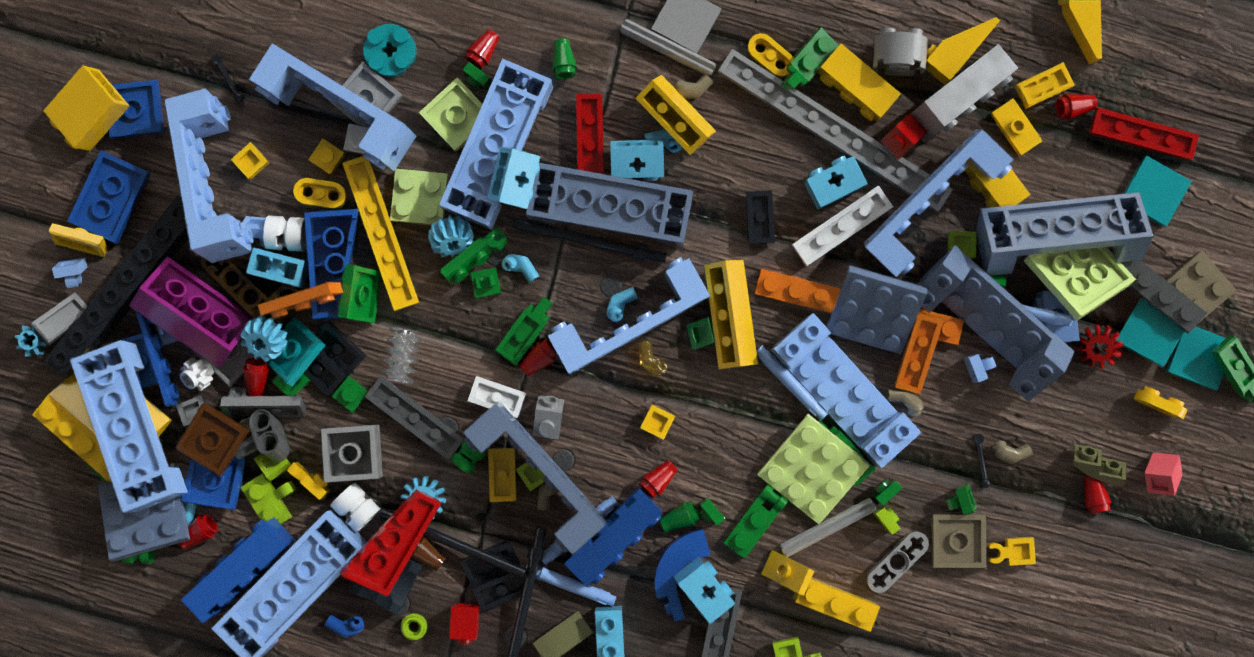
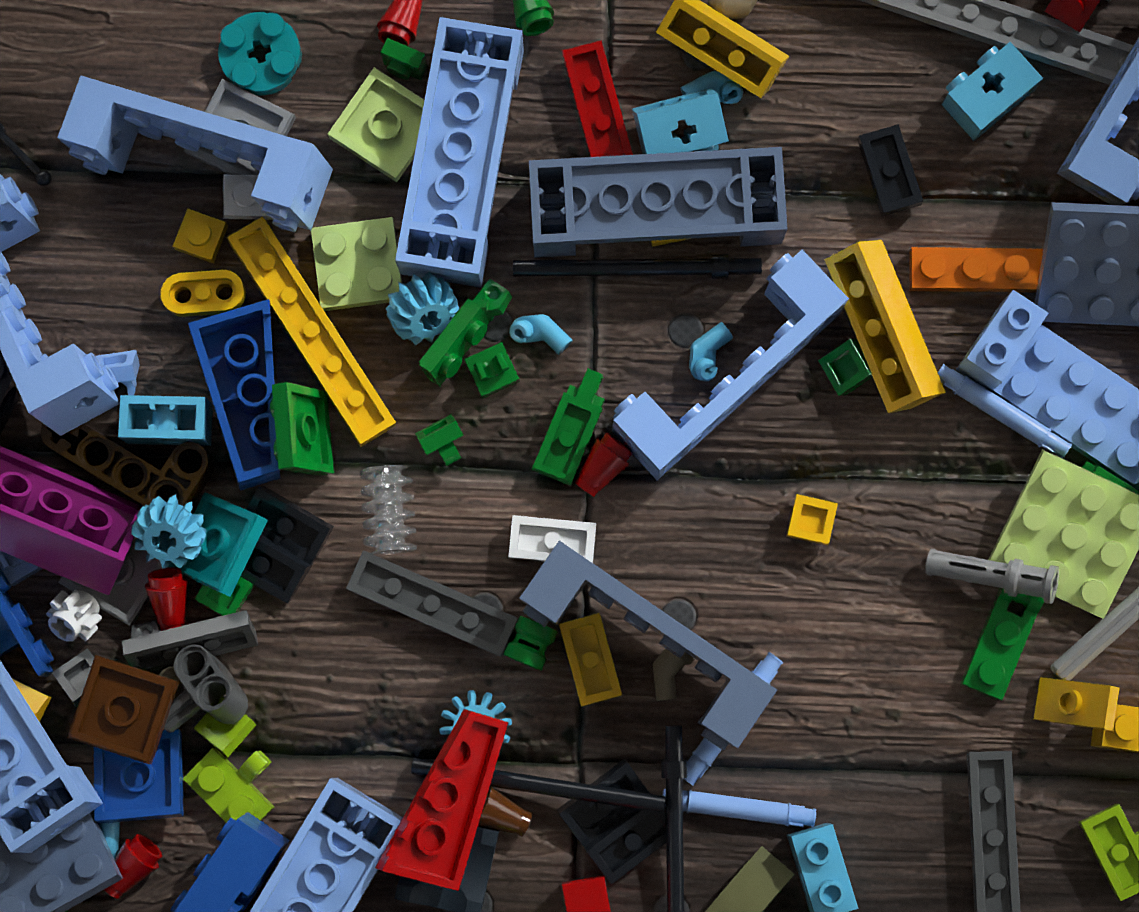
camera: 10 degrees left, 5 degrees down
(250, 161) = (83, 269): yellow plate -> none
(282, 233) = (179, 367): white wheel -> none
(301, 300) = (215, 455): orange plate -> none
(311, 482) = (301, 744): yellow plate -> none
(350, 394) = (322, 591): green plate -> none
(351, 453) = (346, 680): light grey brick -> none
(355, 507) = (372, 765): white wheel -> none
(444, 317) = (440, 437): none -> green tile
(508, 166) = (502, 188): medium azure brick -> none
(531, 477) = (638, 648): lime plate -> none
(548, 417) = (640, 553): light grey bracket -> none
(620, 531) = (801, 700): blue wedge -> none
(649, 361) = (776, 430): clear yellow arm -> none
(658, 479) = (834, 610): red cone -> none
(672, 560) = (888, 739): blue arch -> none
(682, 516) = (885, 659): green cone -> none
(710, 512) = (931, 639): green plate -> none
(710, 603) = (932, 752): medium azure brick -> none
(770, 486) = (1013, 577): none -> light grey pin
(842, 226) = (1018, 153): white plate -> none

